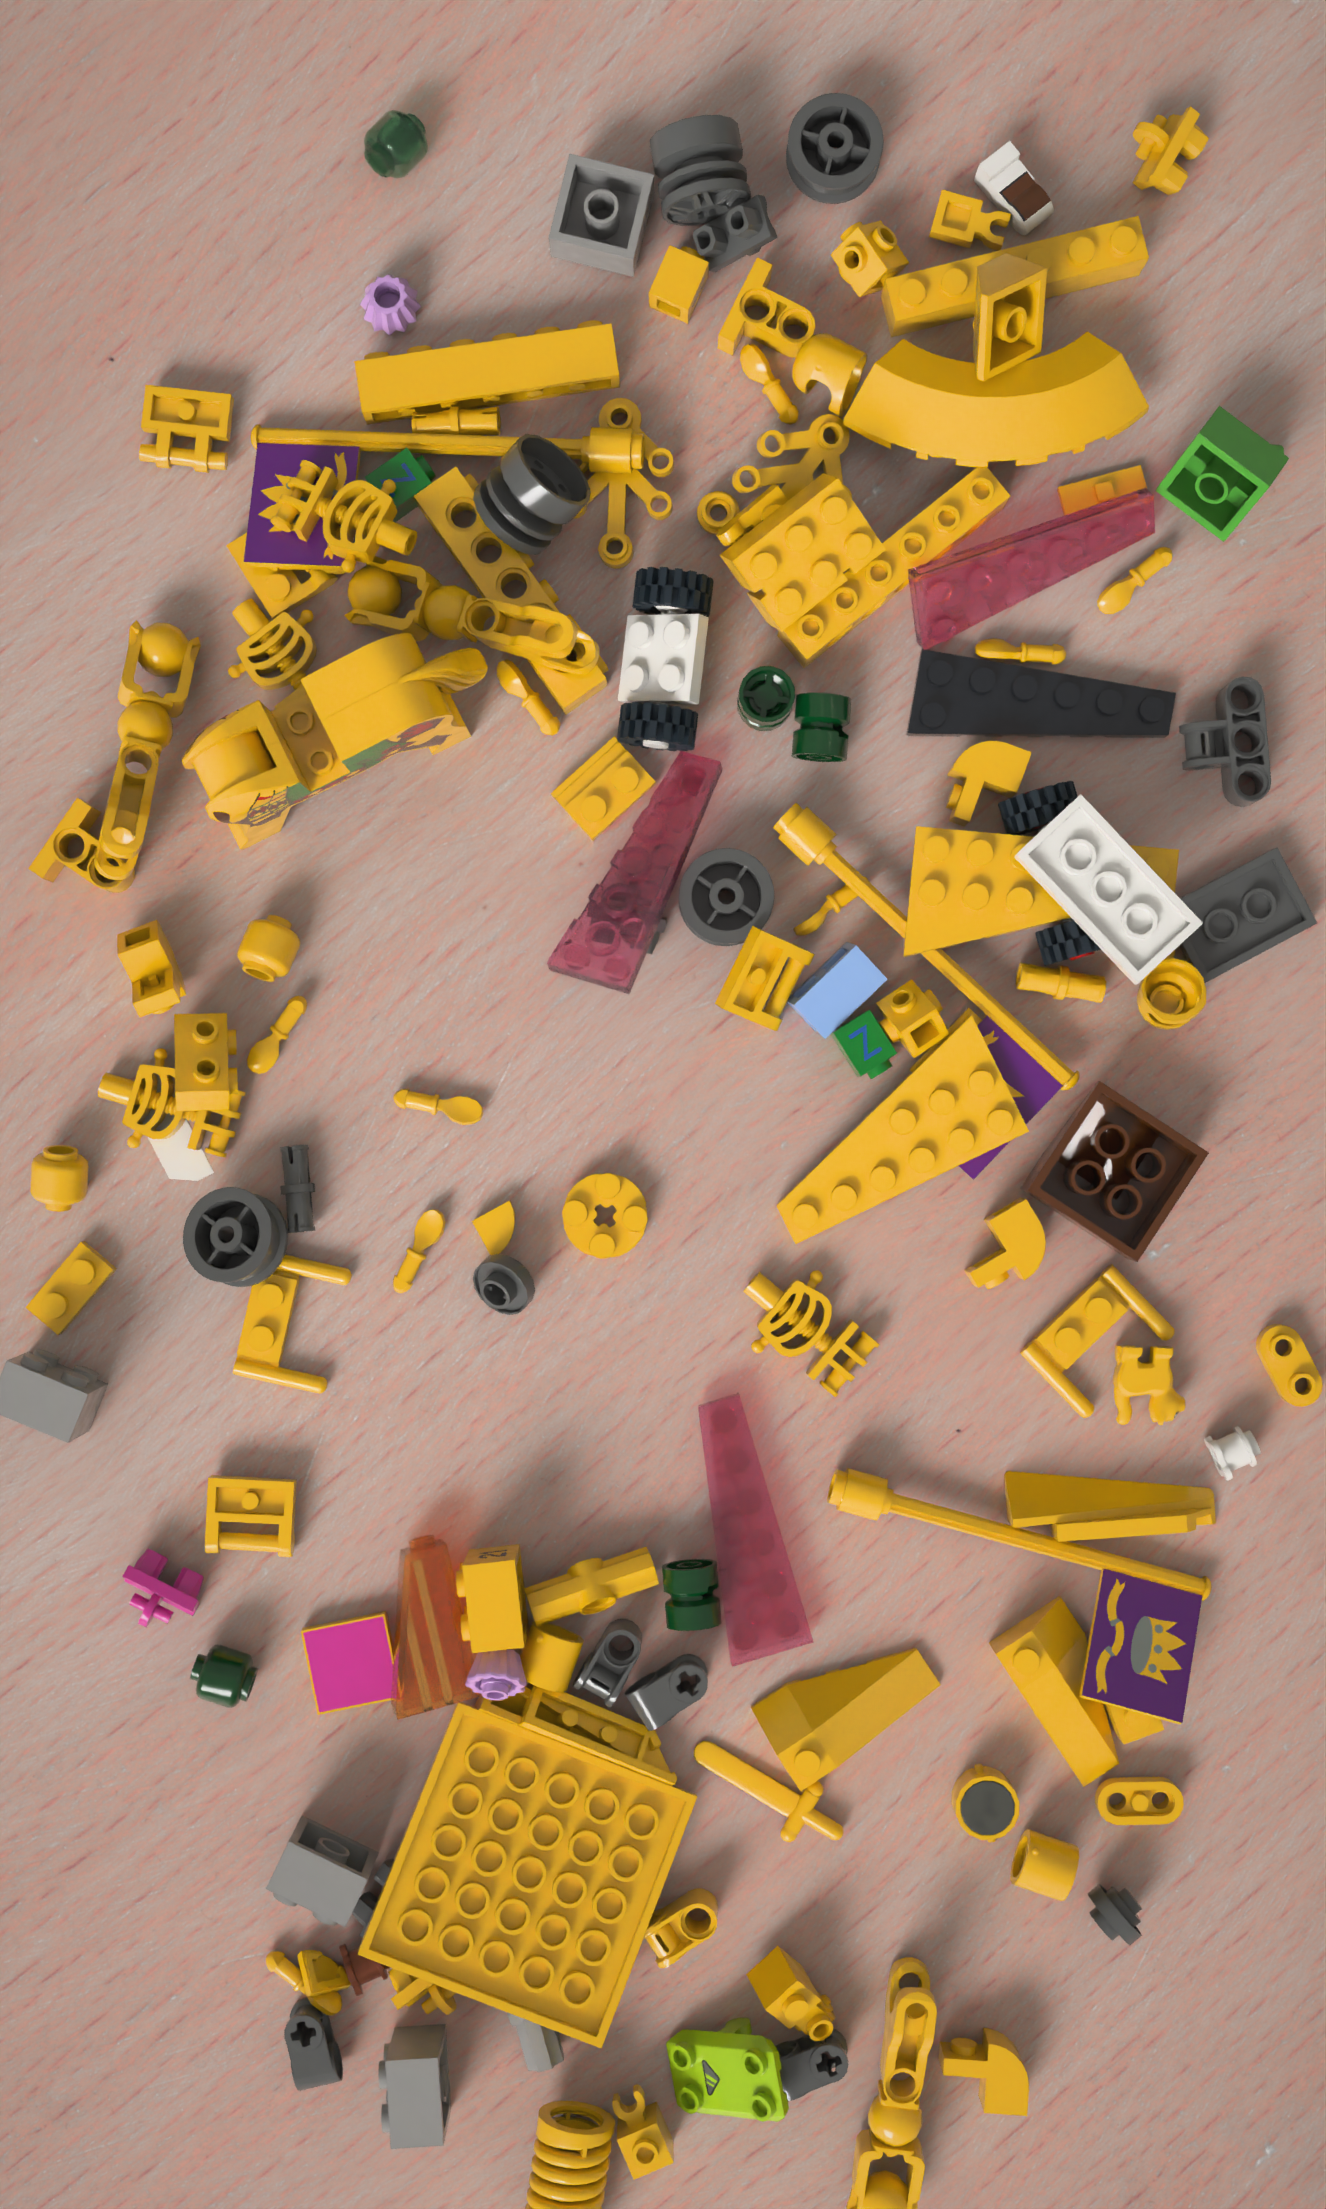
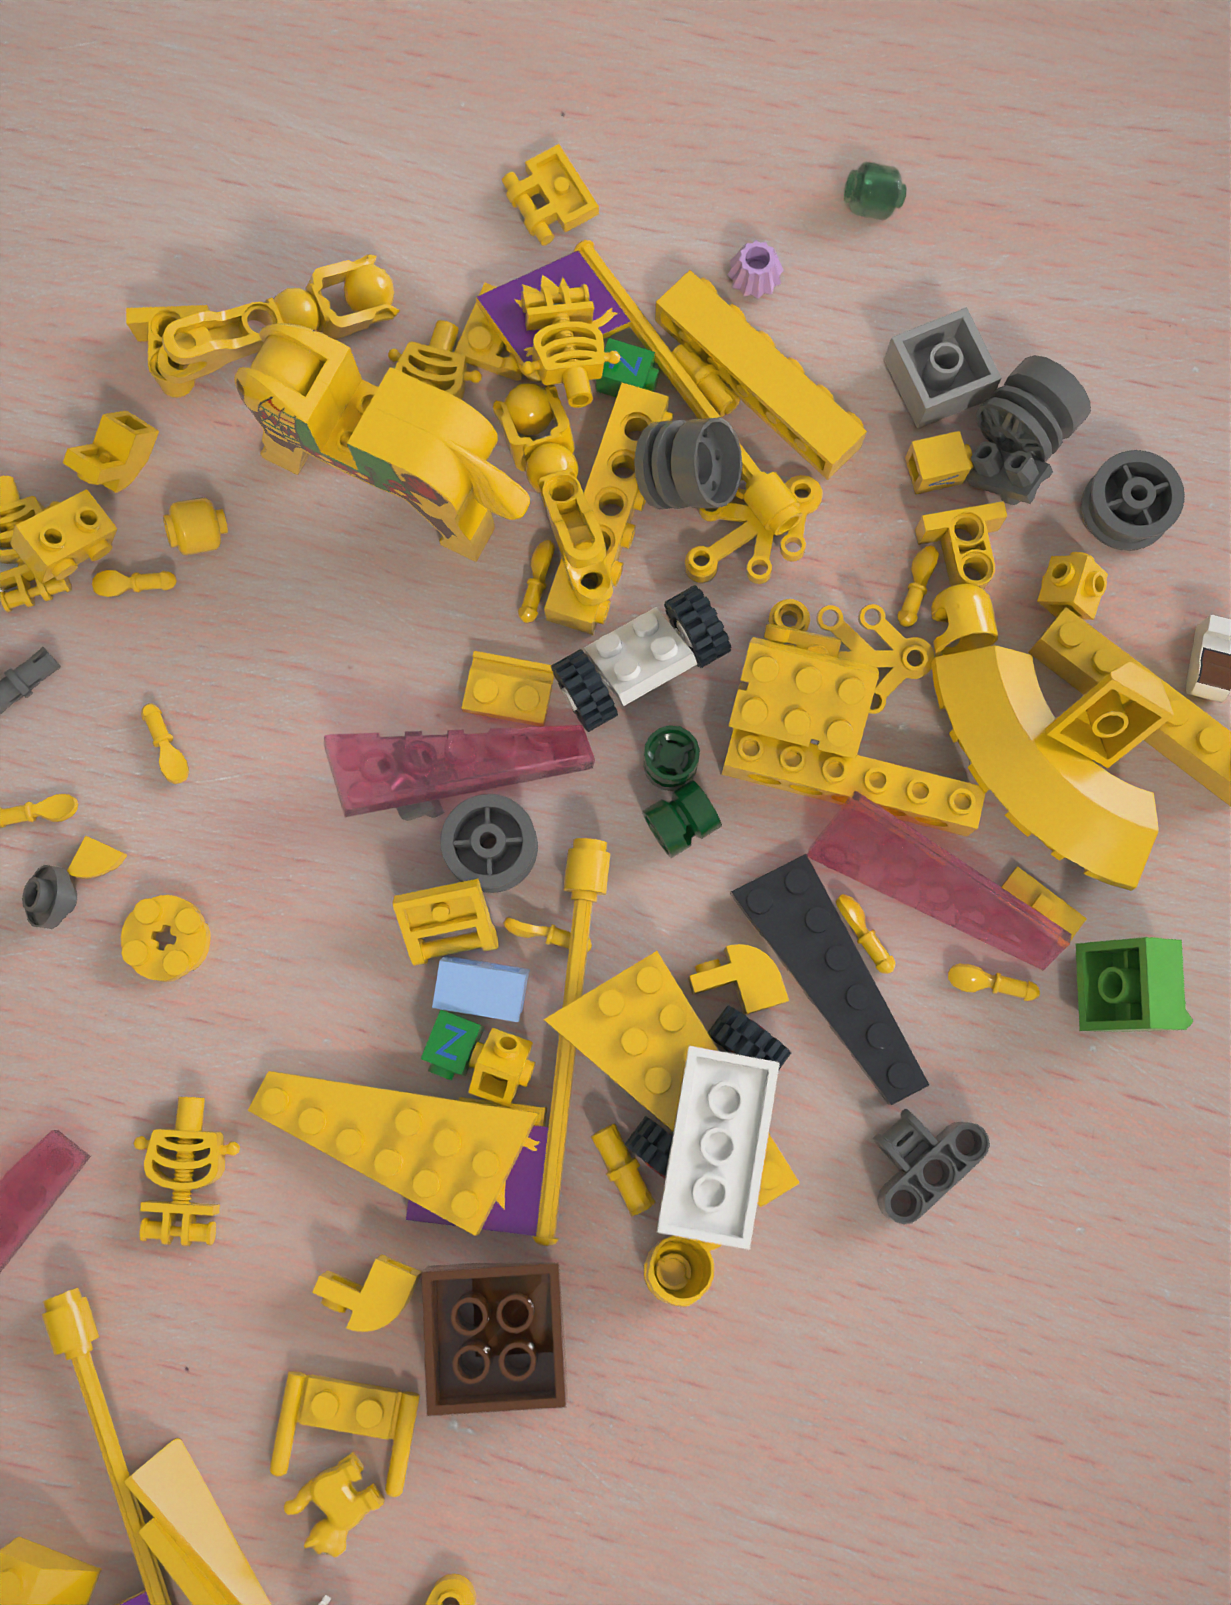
camera: 60 degrees right, 10 degrees down
(960, 220) = (1159, 637): yellow plate -> none
(1244, 915) = (791, 1282): dark grey plate -> none

